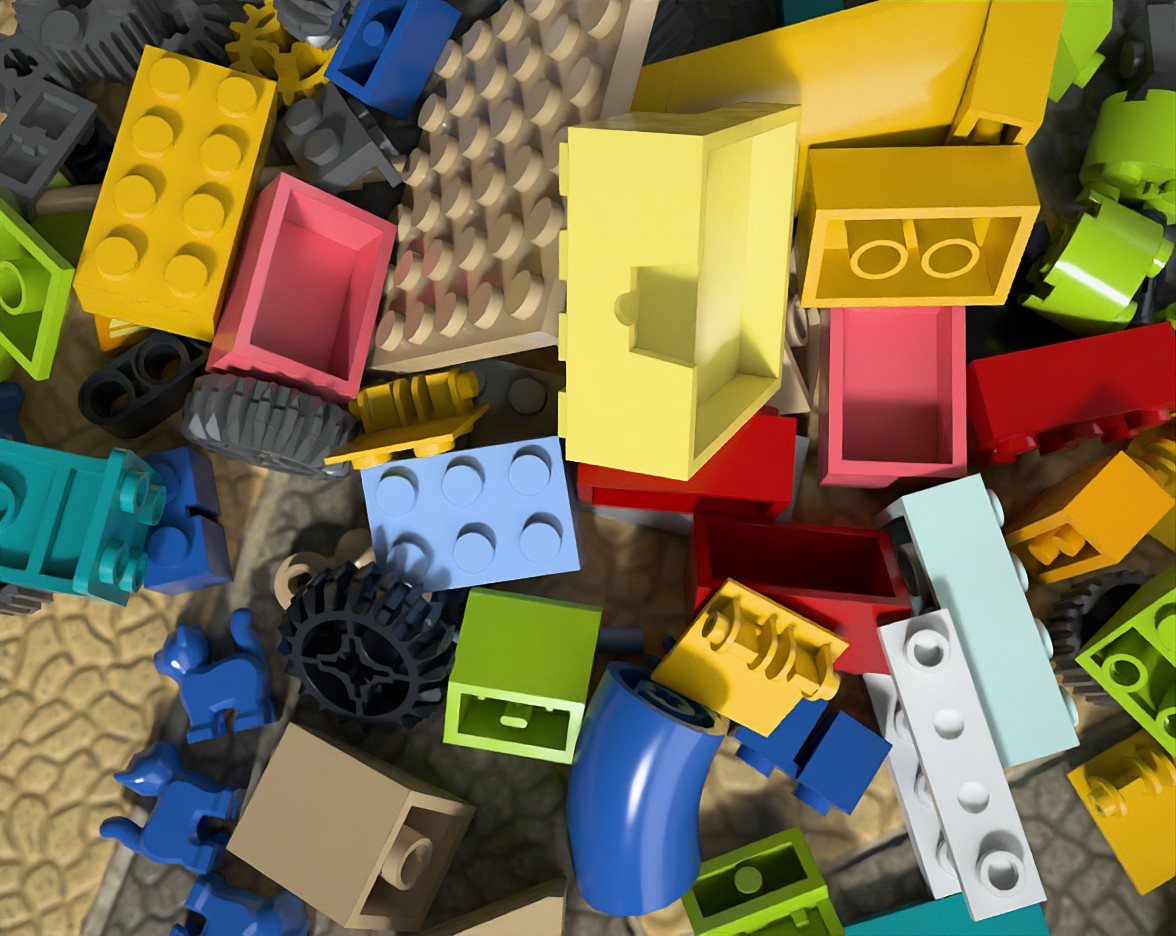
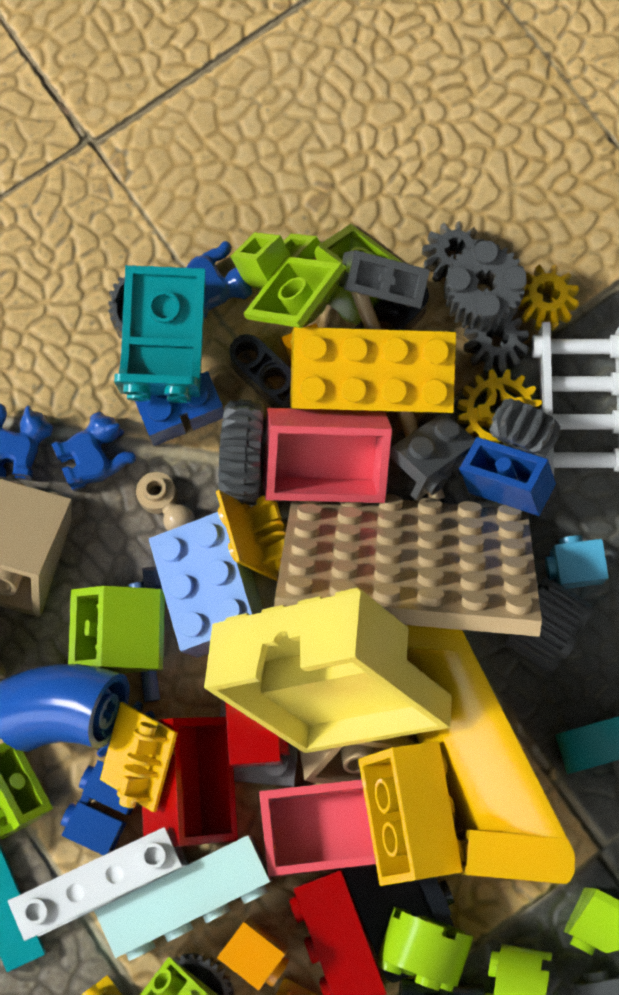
camera: 80 degrees right, 0 degrees up
(368, 647) = (118, 536): black gear -> none

